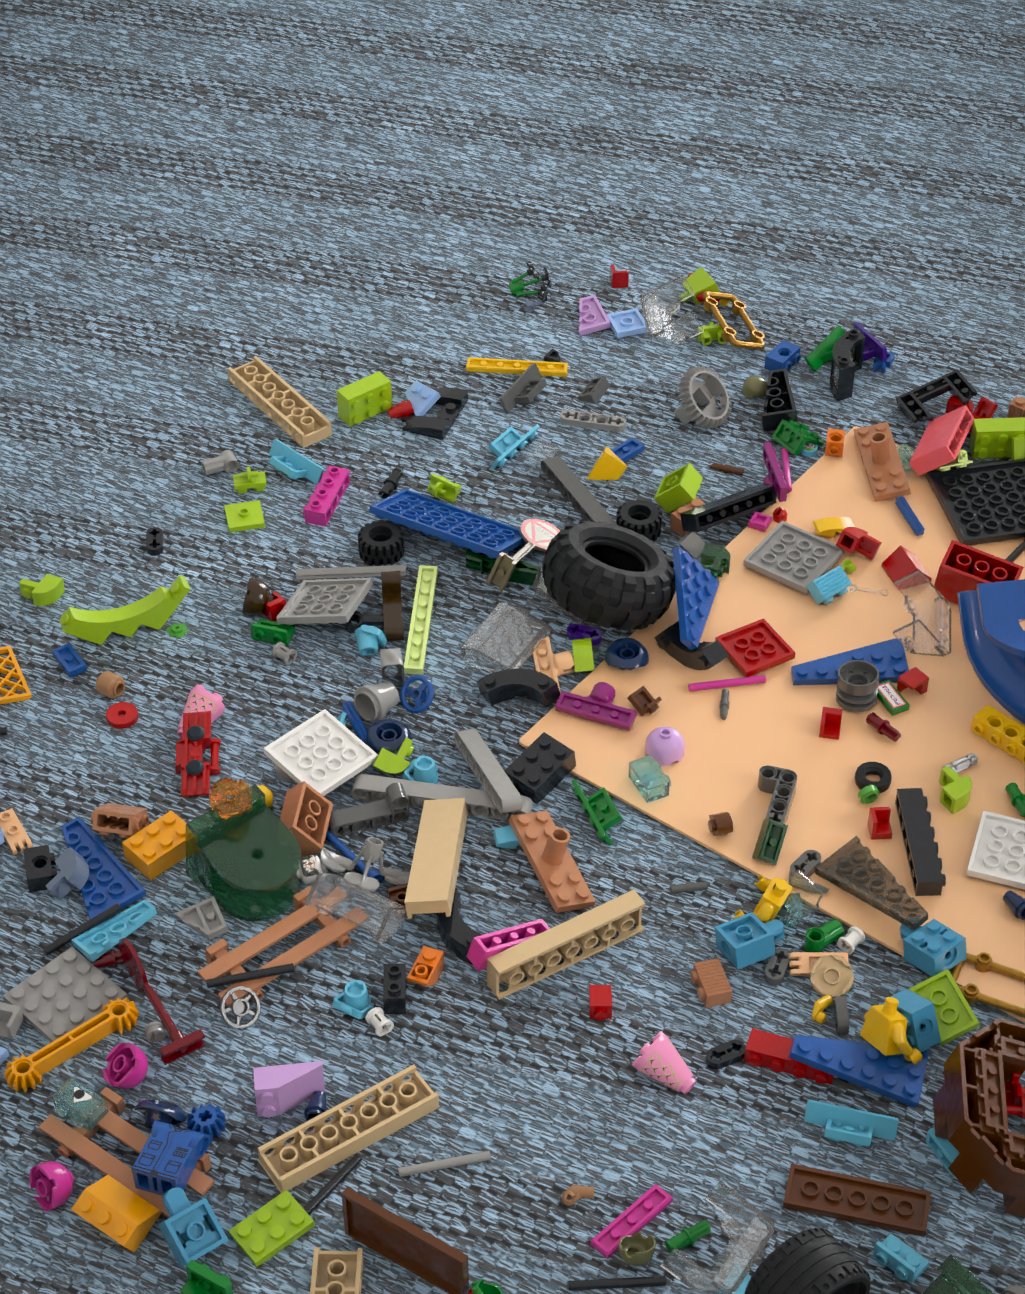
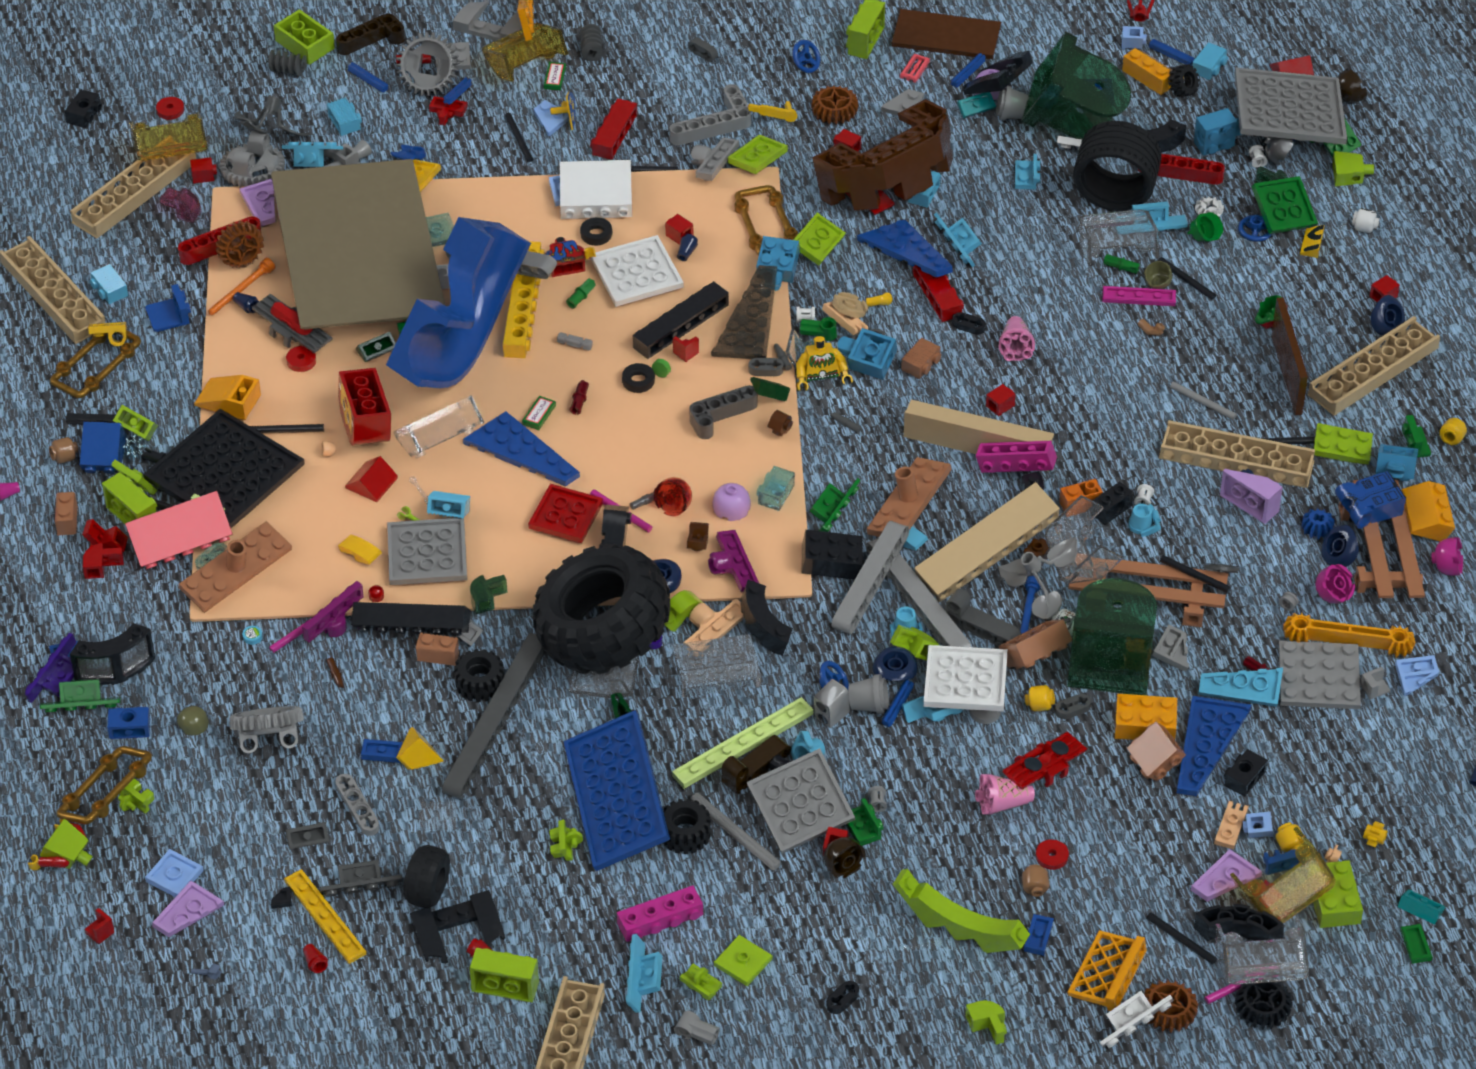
camera: 130 degrees left, 5 degrees up
(73, 873) = (1233, 739): sand blue brick -> none
(79, 1104) = (1391, 574): clear light blue brick -> none
(82, 928) = (1262, 705): black bar -> none
(181, 1044) = (1281, 578): dark red piece -> none
(226, 807) = (1097, 628): clear orange plate -> none
(390, 483) = (595, 884): black pin -> none
(421, 397) = (450, 946): light blue wing -> none
(483, 402) = (426, 876): none -> black tyre
(485, 344) = (315, 959): none -> red cone
(508, 443) = (455, 832): medium azure bracket -> none
(518, 286) = (192, 996): plant -> none
(537, 535) = (569, 726): dark tan piece -> none
(661, 304) = (169, 829): clear windscreen -> none
(678, 488) = (413, 667): lime brick -> none
(694, 594) = (570, 549): blue wing -> none
(704, 710) = (673, 496): none -> clear red cylinder
(760, 521) = (399, 597): dark pink tile -> none
(779, 400) = (209, 681): black wedge -> none
(794, 436) = (251, 641): green bracket -> none
(830, 723) = (607, 429): red panel -> none
(835, 442) = (240, 607): orange brick -> none
(841, 1014) = (875, 286): dark grey beam -> none
(856, 539) = (375, 516): red brick -> none
(857, 685) = (557, 422): dark grey wheel -> none
(857, 1200) = (1009, 209): reddish brown plate -> none
(886, 1031) = (878, 243): yellow torso -> none
(910, 516) = (295, 513): blue axle -> none
(913, 679) = (513, 402): red panel -> none
(922, 1024) = (853, 240): dark azure brick -> none
(954, 382) = (81, 567): black wedge -> none
(955, 790) = (608, 323): lime brick -> none

